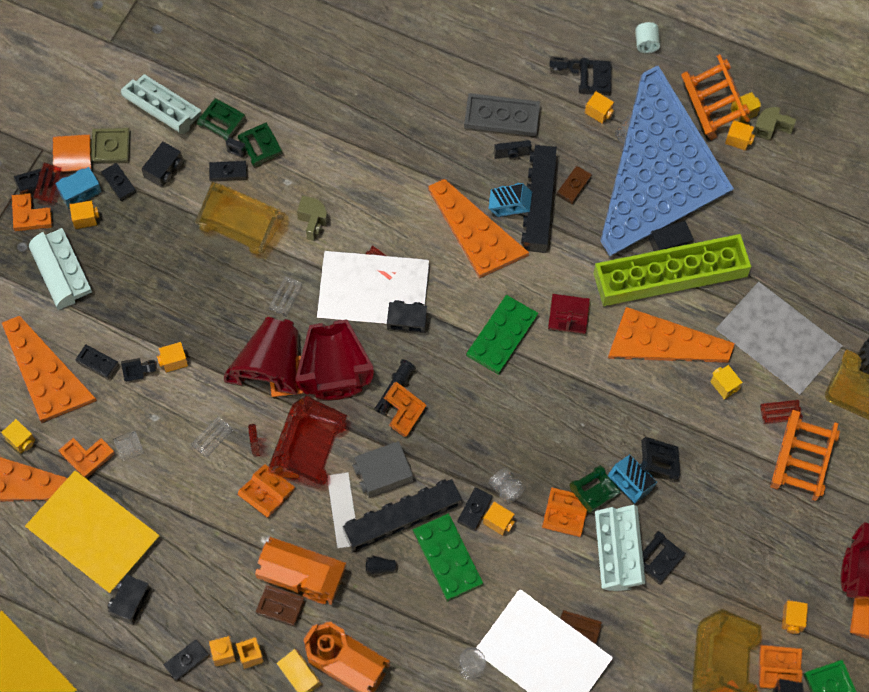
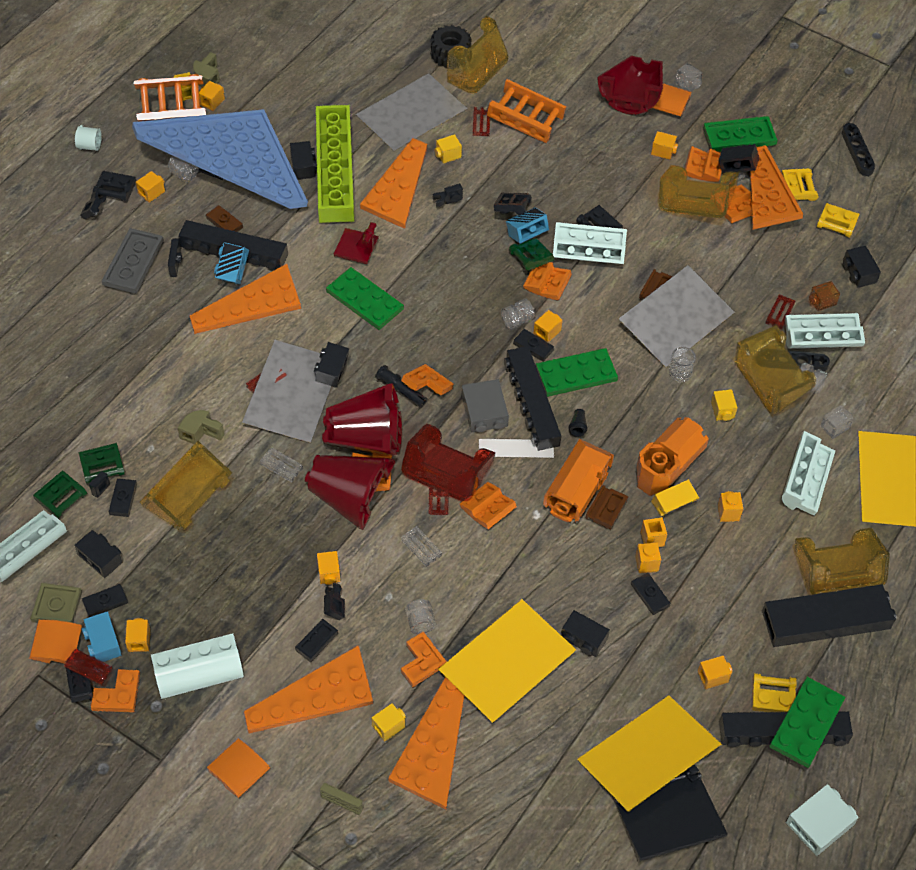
camera: 80 degrees left, 10 degrees down
(659, 394) = (451, 194): none -> black plate

